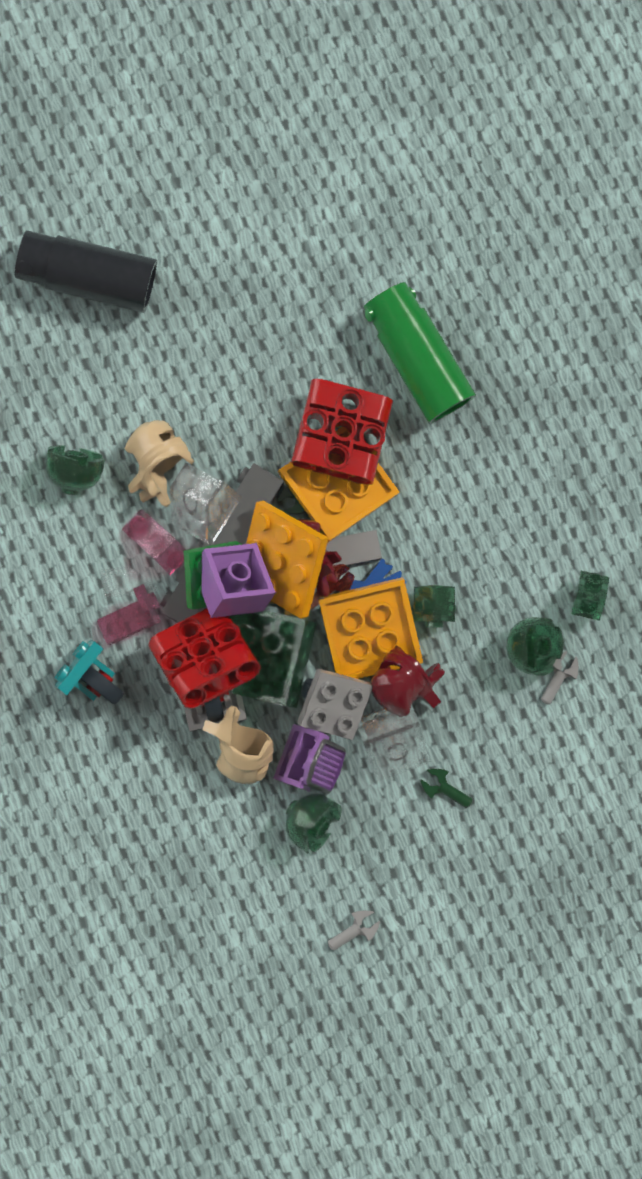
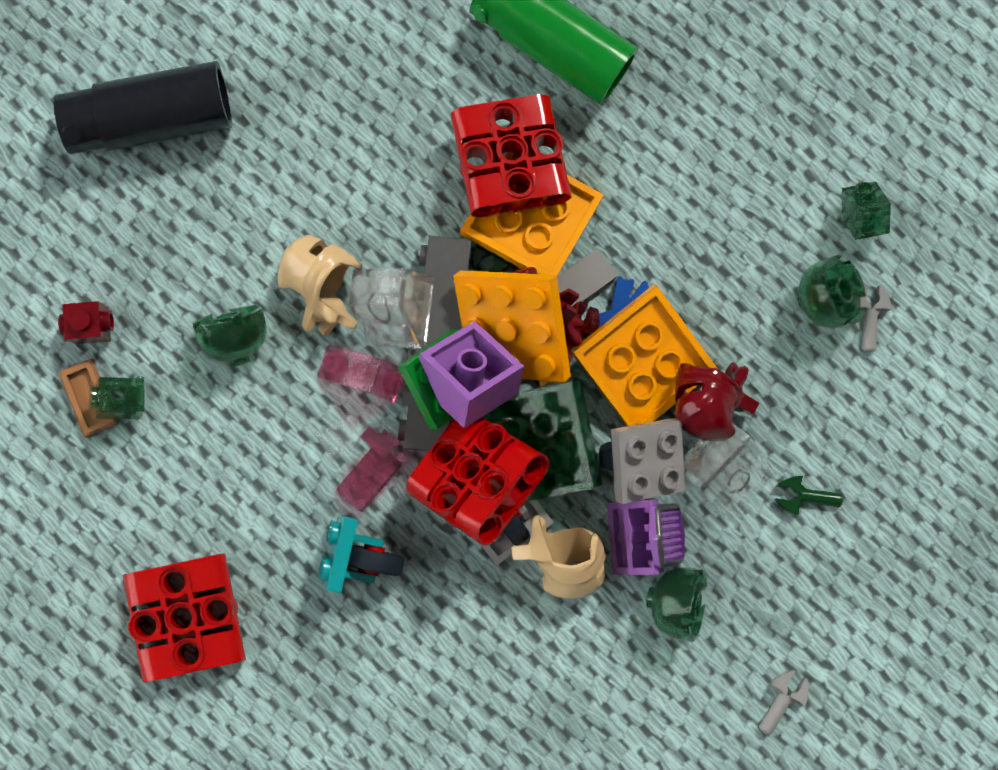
camera: 25 degrees left, 0 degrees up
(434, 605) = (701, 300): clear green brick -> none

